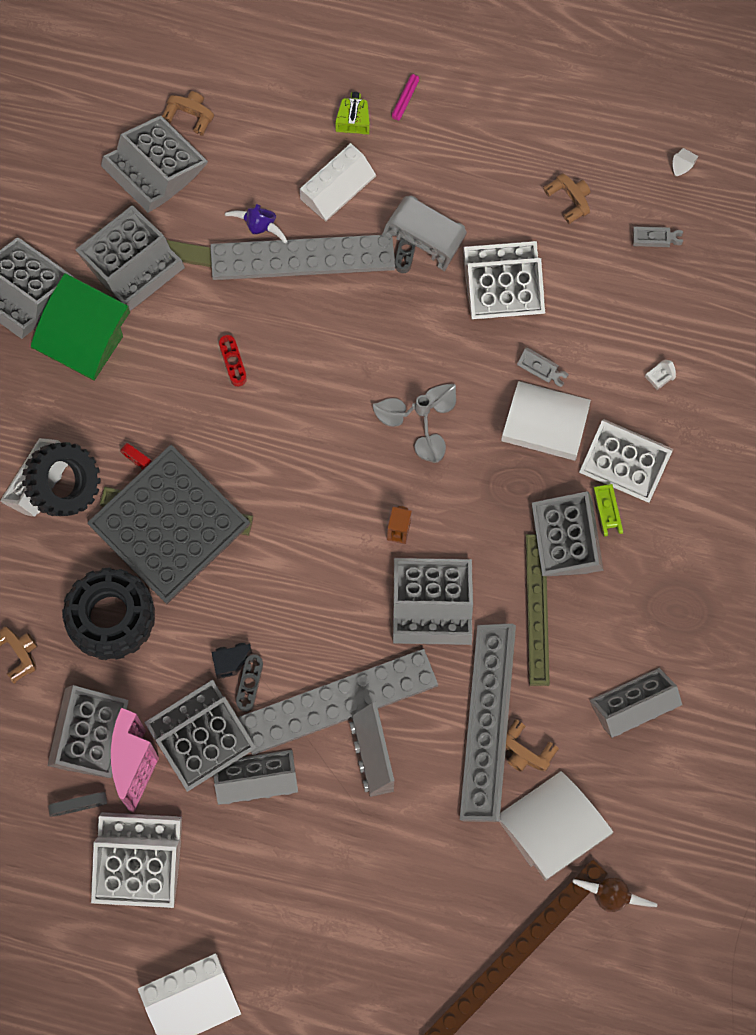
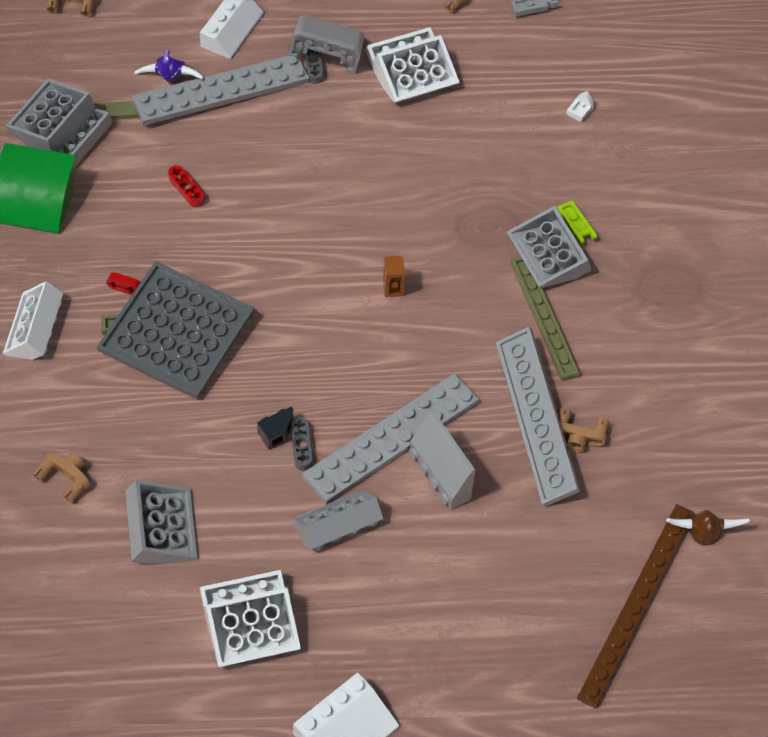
camera: 20 degrees left, 15 degrees down
(77, 804) = (173, 587): dark grey beam -> none
(85, 479) = (48, 325): black tyre -> none
(121, 638) = (151, 436): black tyre -> none
(131, 758) = (217, 522): bright pink slope -> none
(153, 163) = (52, 45): light grey slope -> none
(200, 735) = (271, 495): light grey slope -> none
(432, 601) = (447, 332): light grey slope -> none
(441, 398) = (391, 171): light grey plant -> none
(541, 367) = (471, 125): light grey plate -> none
(546, 420) = (494, 164): white slope -> none
(554, 825) = (631, 483): white slope -> none
(626, 460) = (577, 177): white slope -> none
(636, 702) = (664, 367): light grey slope -> none

